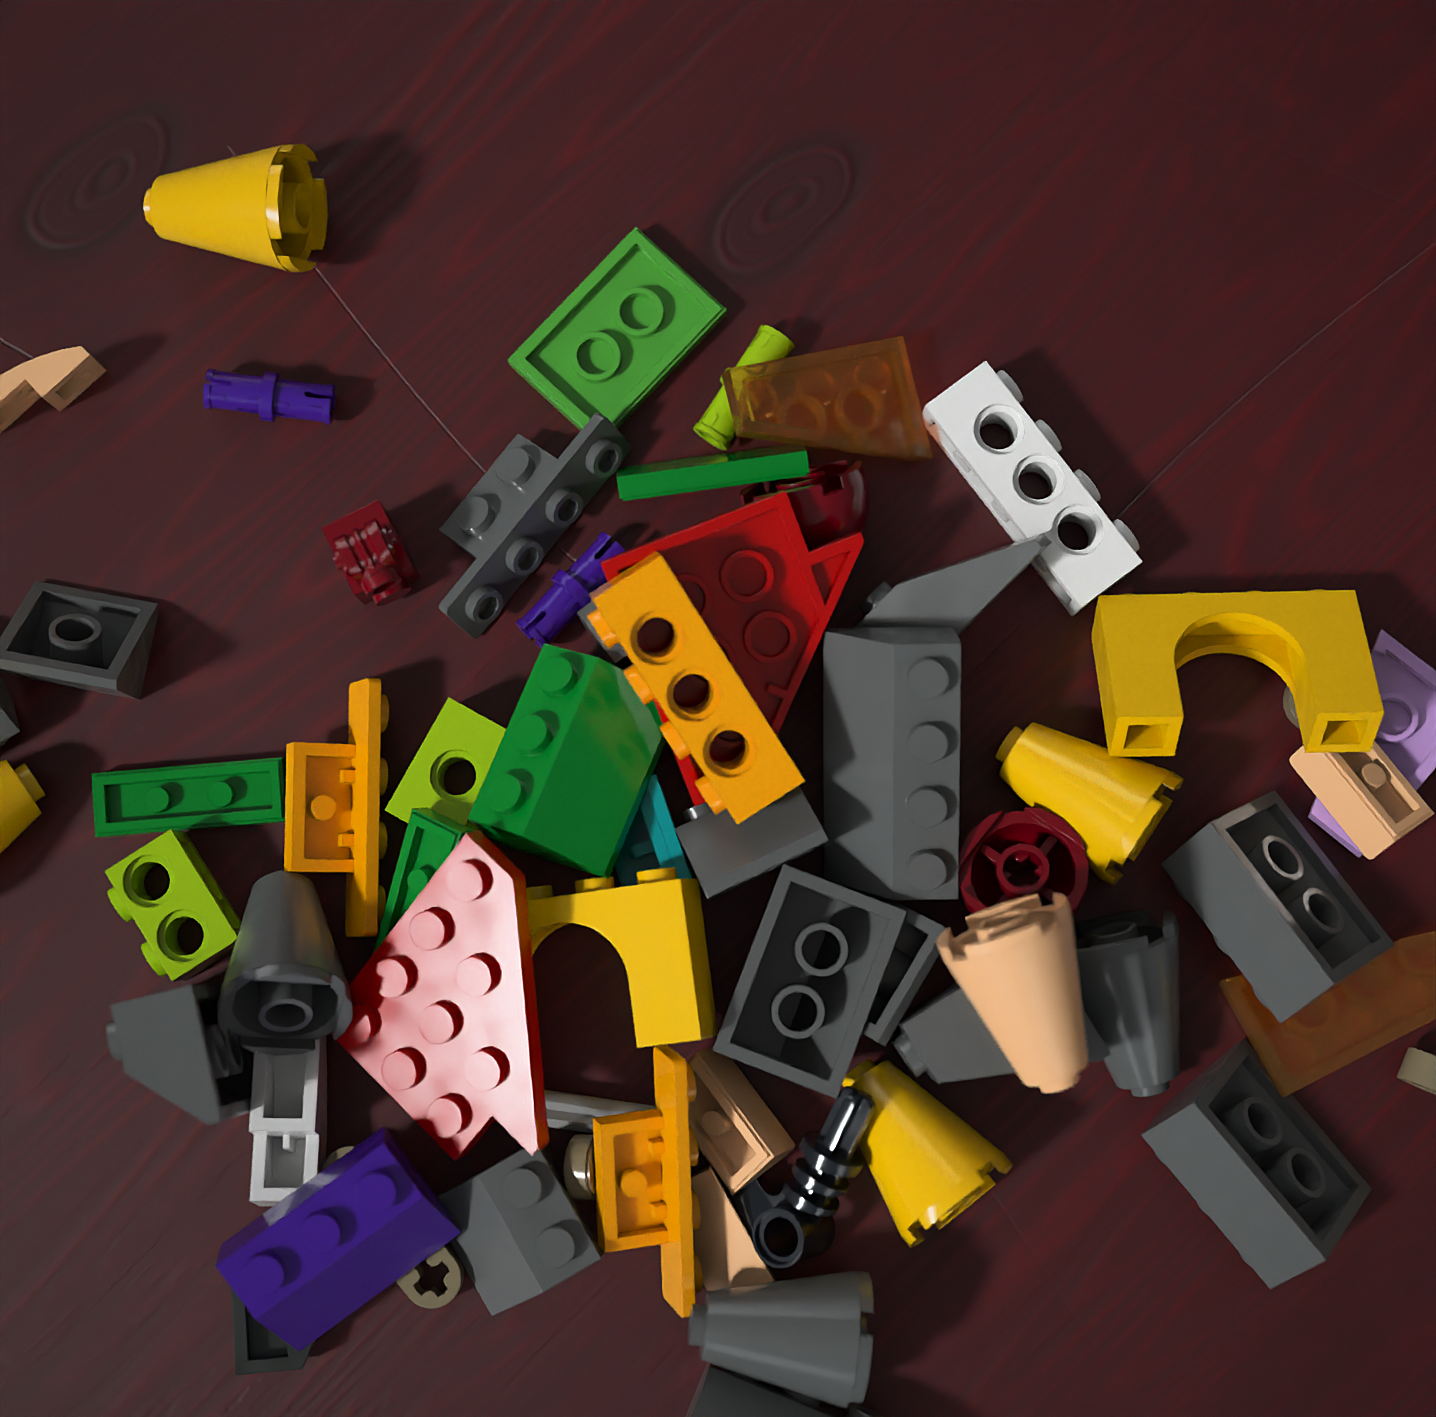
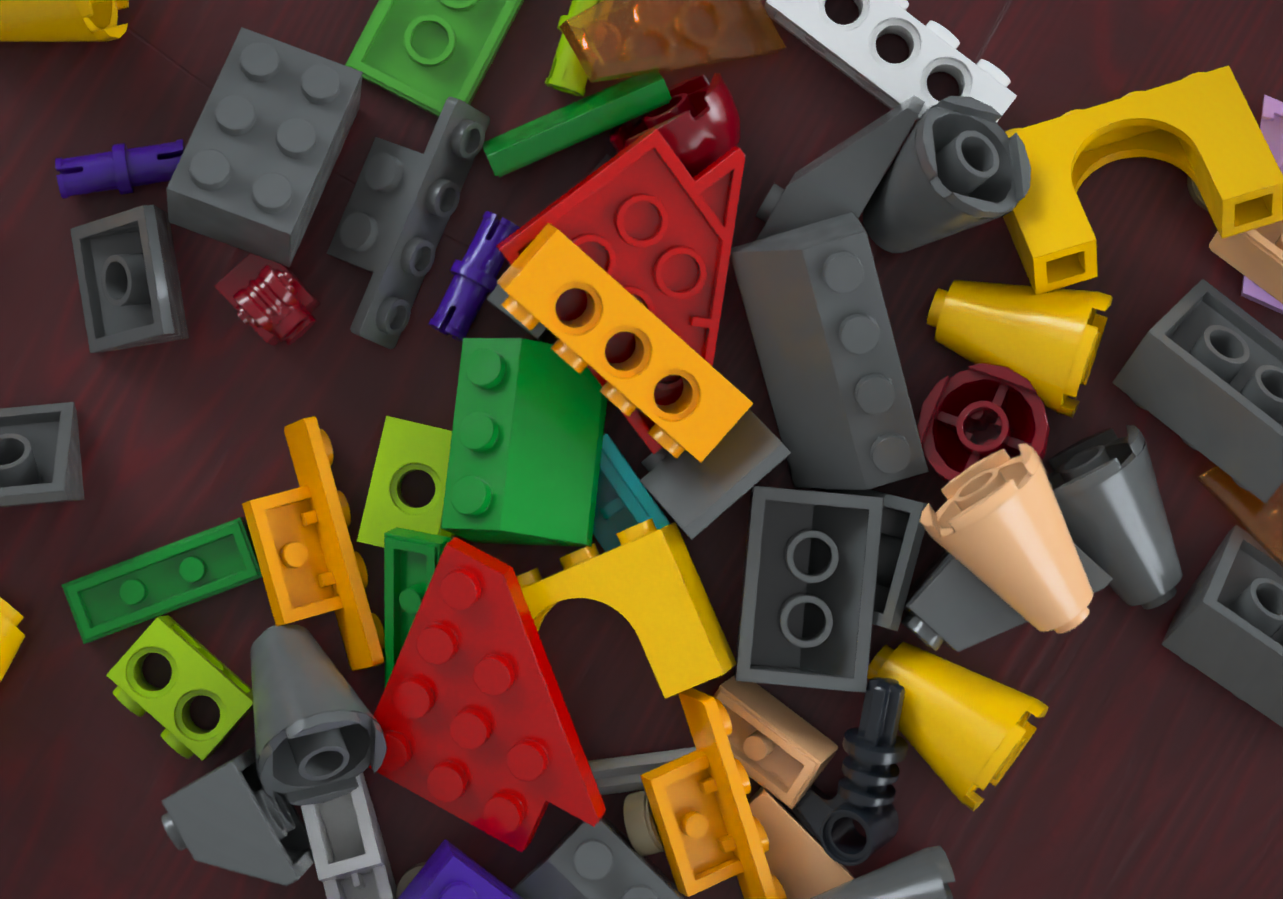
camera: 20 degrees left, 5 degrees up
(245, 502) = (129, 280): none -> dark grey slope
(407, 410) = (264, 147): none -> dark grey brick
(1054, 618) = (948, 177): none -> dark grey cone

